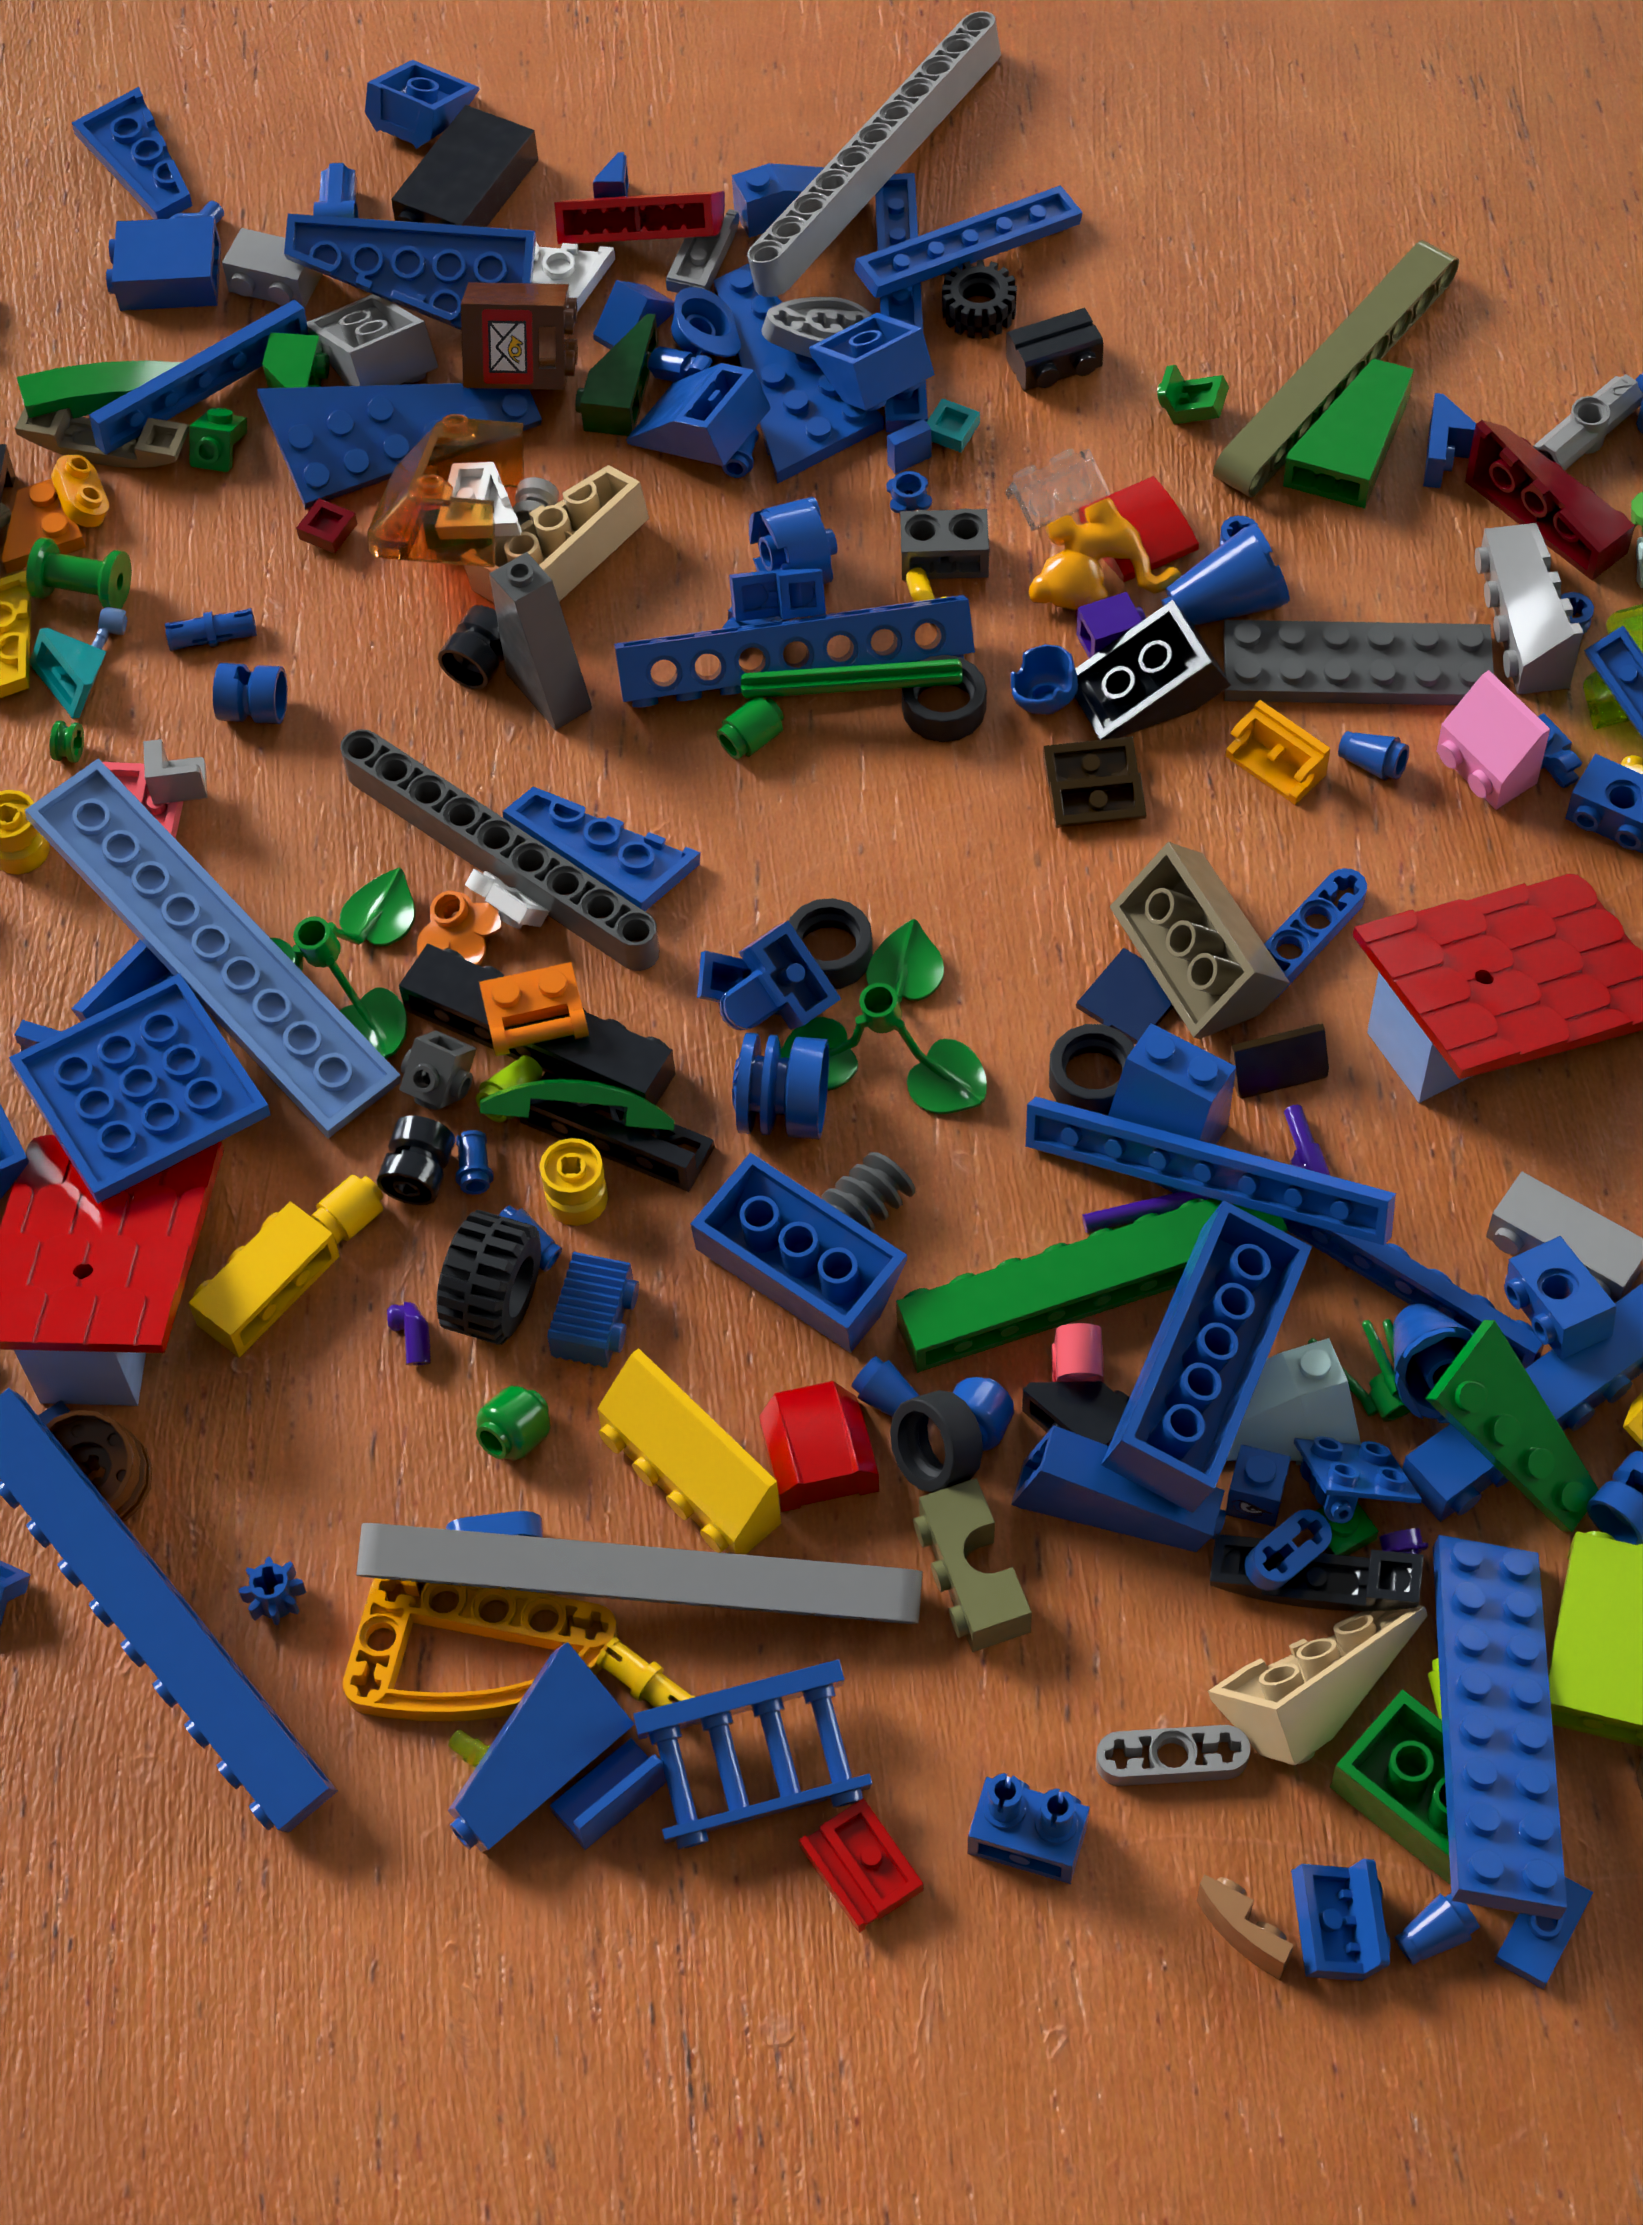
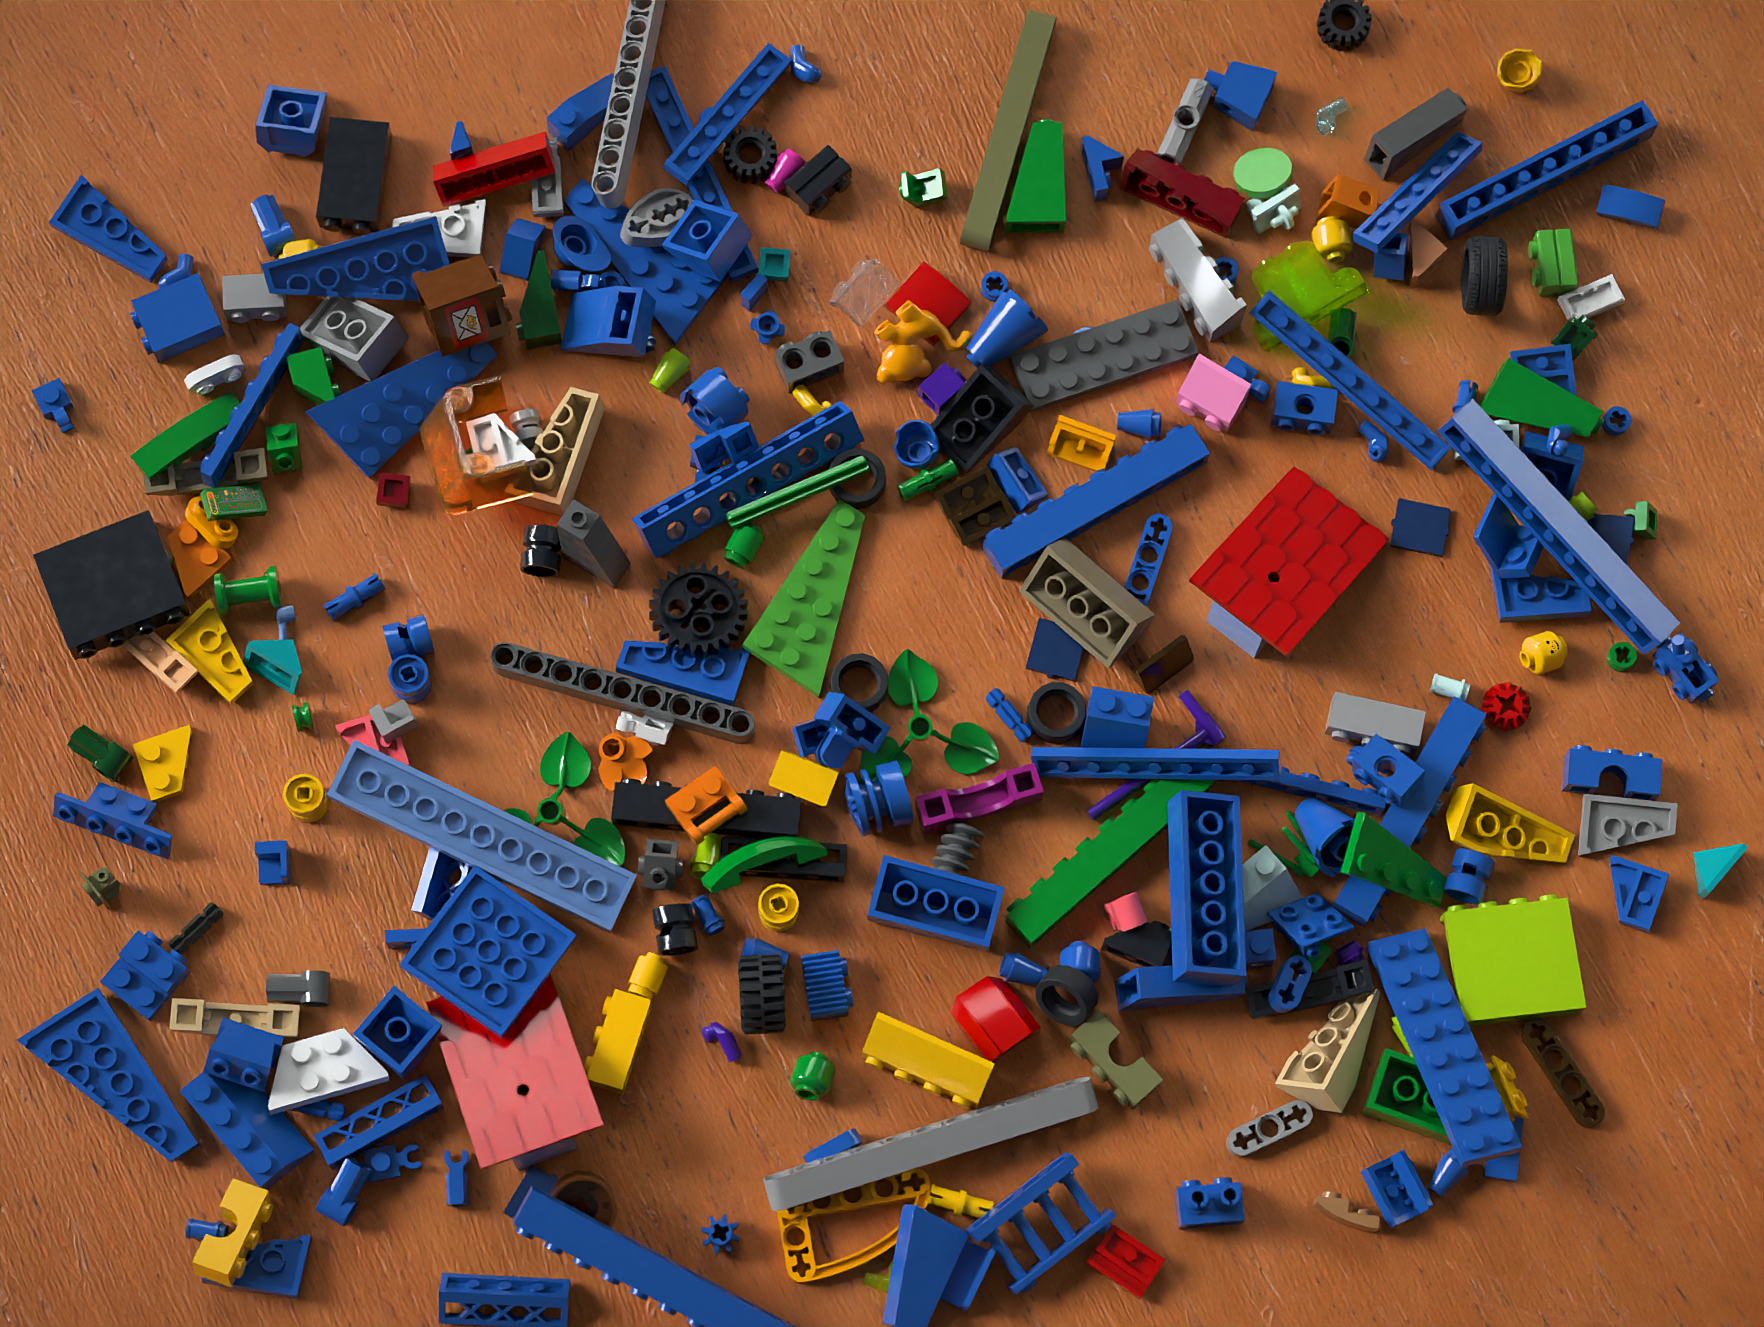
camera: 30 degrees left, 15 degrees up
(118, 473) = (233, 502): none -> green tile
(175, 333) = (223, 370): none -> white plate
(225, 738) = (410, 678): none -> blue wheel
(650, 782) = (676, 595): none -> black gear
(691, 1029) = (804, 778): none -> yellow panel
(755, 495) = (670, 369): none -> lime cone
(796, 833) = (804, 614): none -> bright green wing
(978, 1145) = (1002, 793): none -> magenta arch
(1010, 734) = (927, 480): none -> green pin
(1018, 317) = (785, 166): none -> dark pink cone
(1025, 1054) = (1009, 714): none -> blue axle
(1094, 229) = (801, 68): none -> blue arm
(1168, 770) = (1016, 479): none -> blue slope
(1275, 823) = (1095, 500): none -> blue brick
(1579, 1820) = (1512, 1098): none -> yellow hinge

